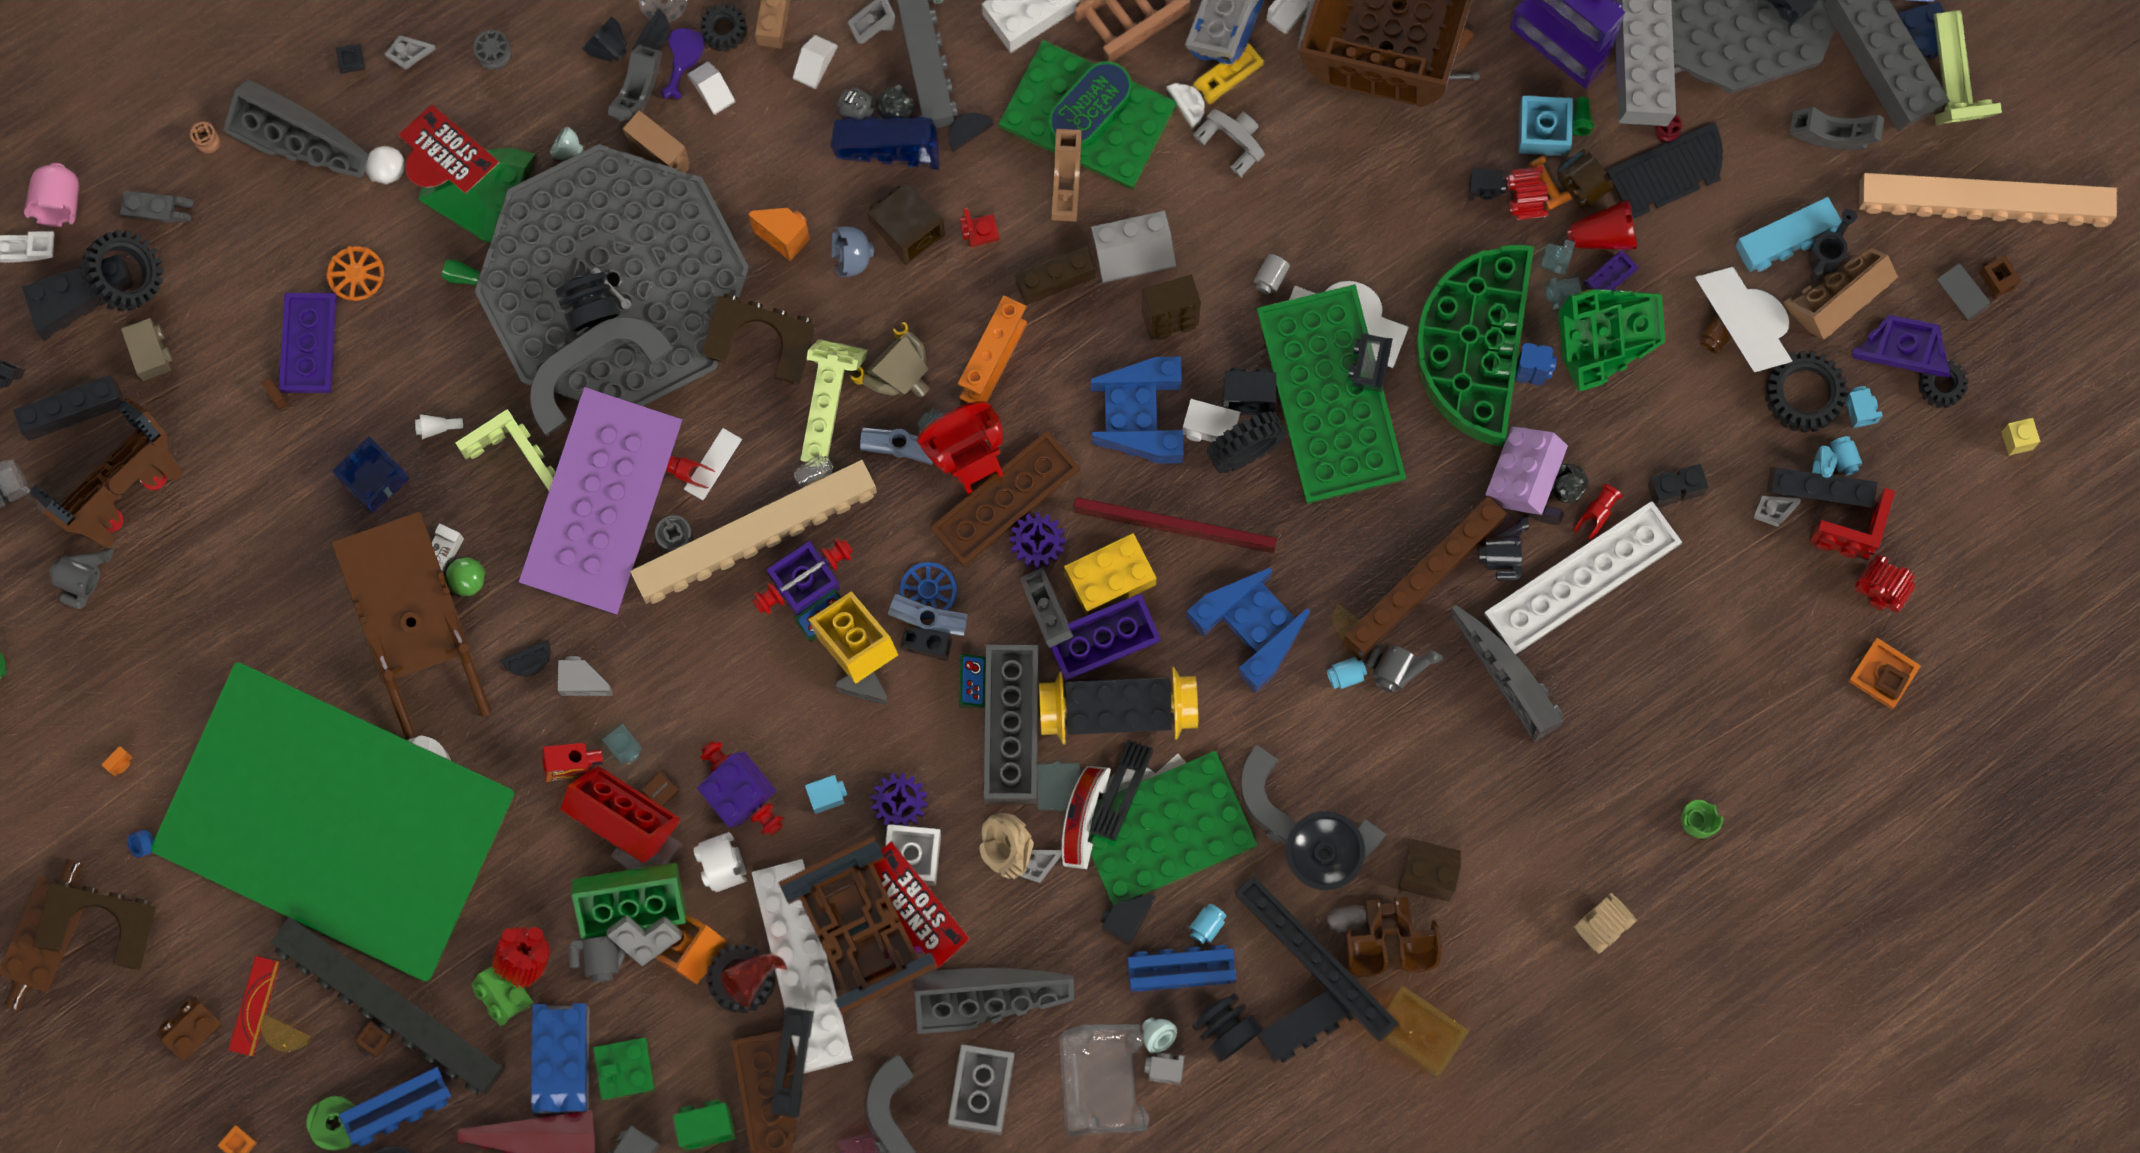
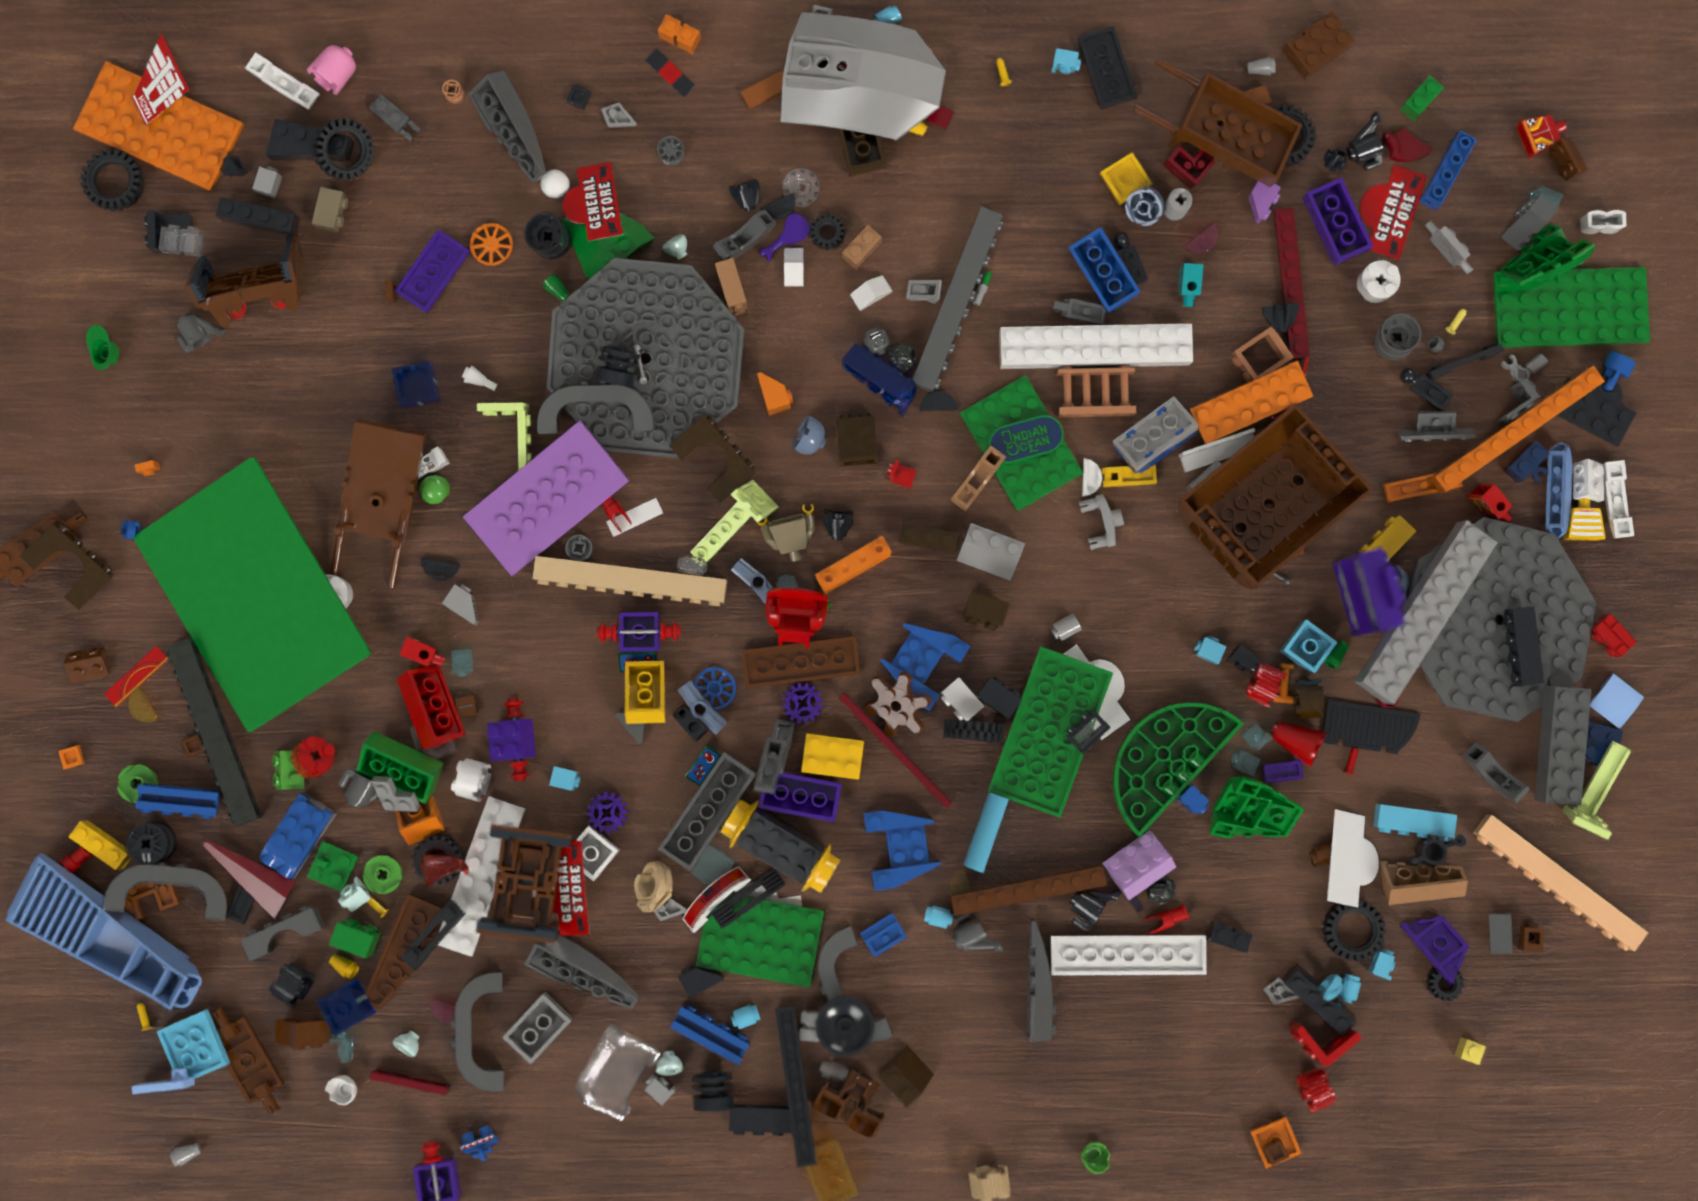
camera: 30 degrees right, 10 degrees up
(55, 364) = (267, 181): none -> light grey brick
(413, 208) = (540, 229): none -> black wheel
(670, 1082) = (354, 895): none -> light aqua brick
(682, 1025) = (382, 885): none -> bright green plate
(704, 1080) = (377, 906): none -> yellow piece
(944, 323) = (837, 523): none -> black brick
(1153, 457) = (909, 704): none -> plate
(1289, 887) = (808, 1030): none -> light grey wheel
(1299, 733) = (883, 934): none -> blue plate
(1335, 546) = (985, 832): none -> medium azure brick
(1443, 198) = (1209, 649): none -> medium azure brick
(1677, 218) = (1351, 761): none -> red piece

